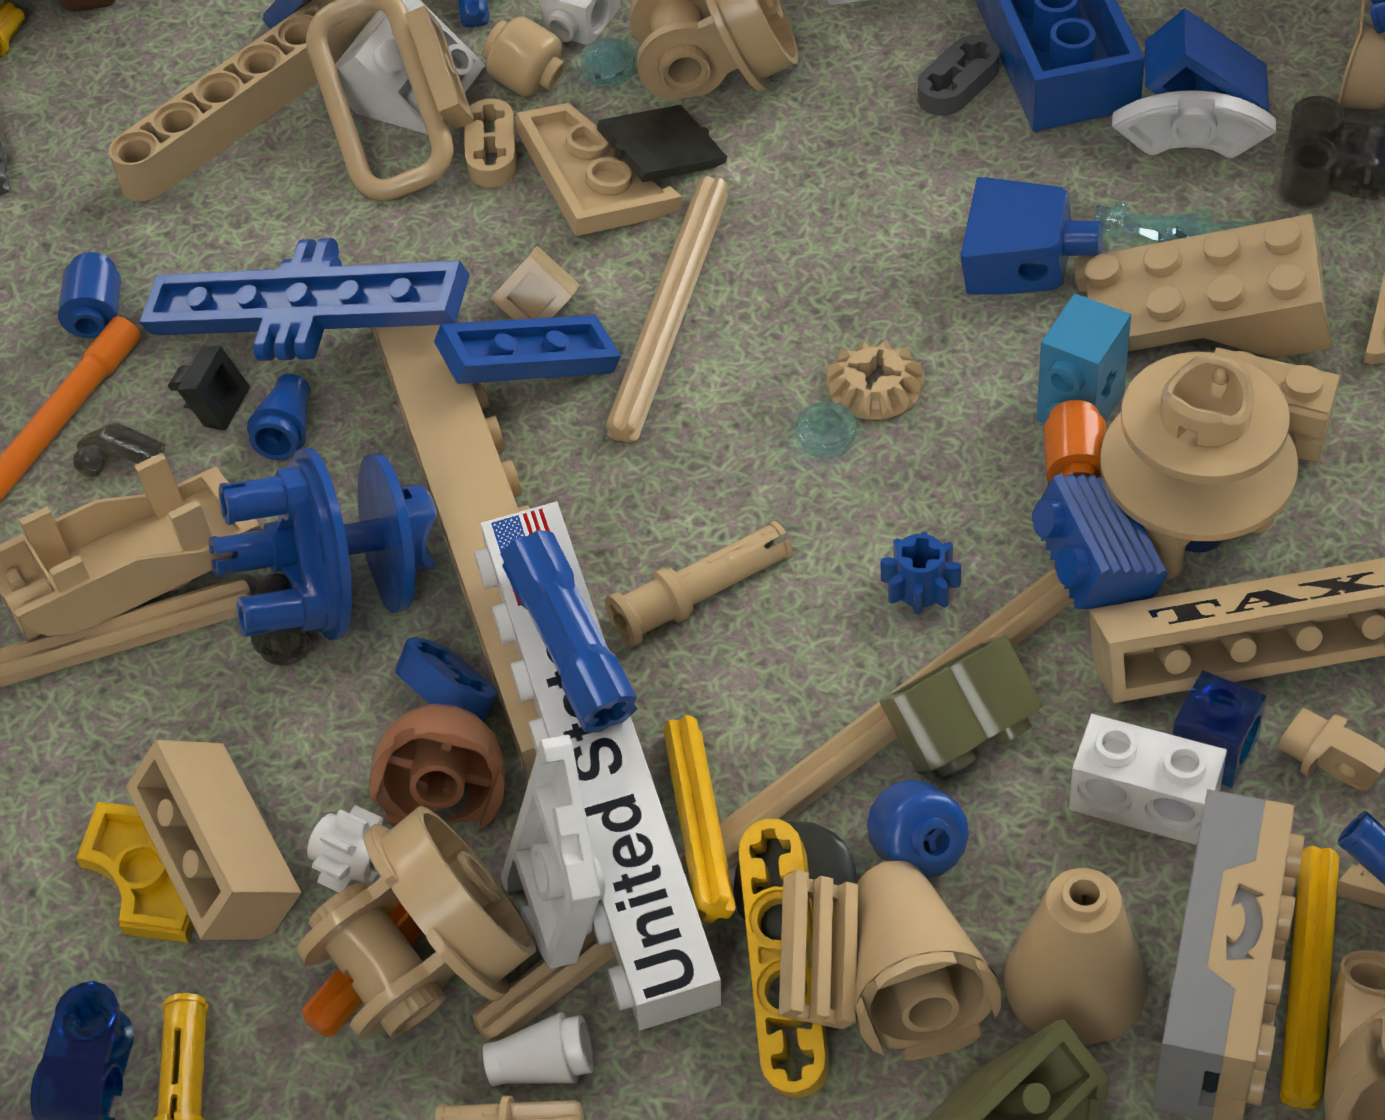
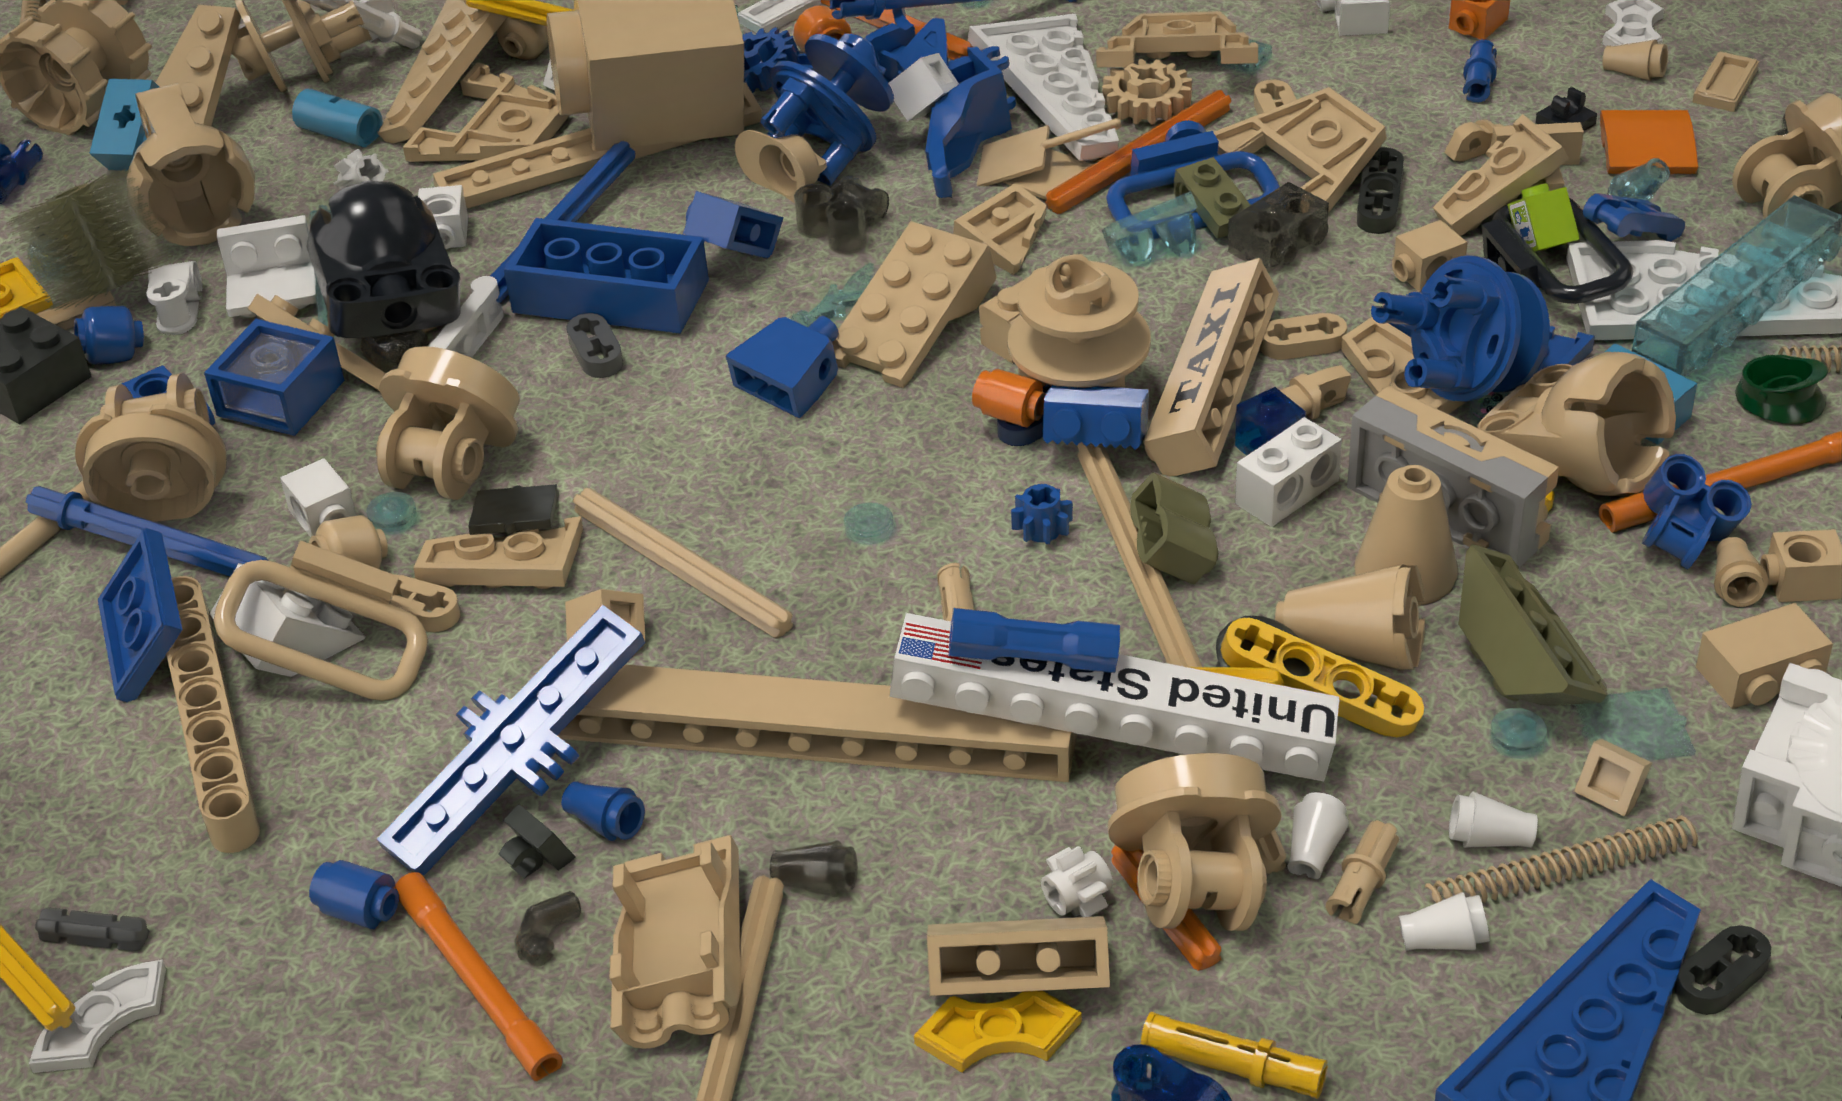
camera: 65 degrees left, 10 degrees down
(315, 545) = (800, 779): blue piece -> none
(430, 759) = (1041, 794): nougat cylinder -> none
(444, 677) = (957, 783): blue beam -> none
(526, 349) = (679, 633): blue plate -> none
(554, 856) = (1212, 705): white wing -> none
(830, 951) = (1341, 645): tan tile -> none
(889, 395) = (841, 497): tan gear -> none
(918, 826) = (1257, 581): blue head -> none
(1084, 357) = (943, 367): dark azure brick -> none
(1194, 121) = (759, 251): white tile -> none

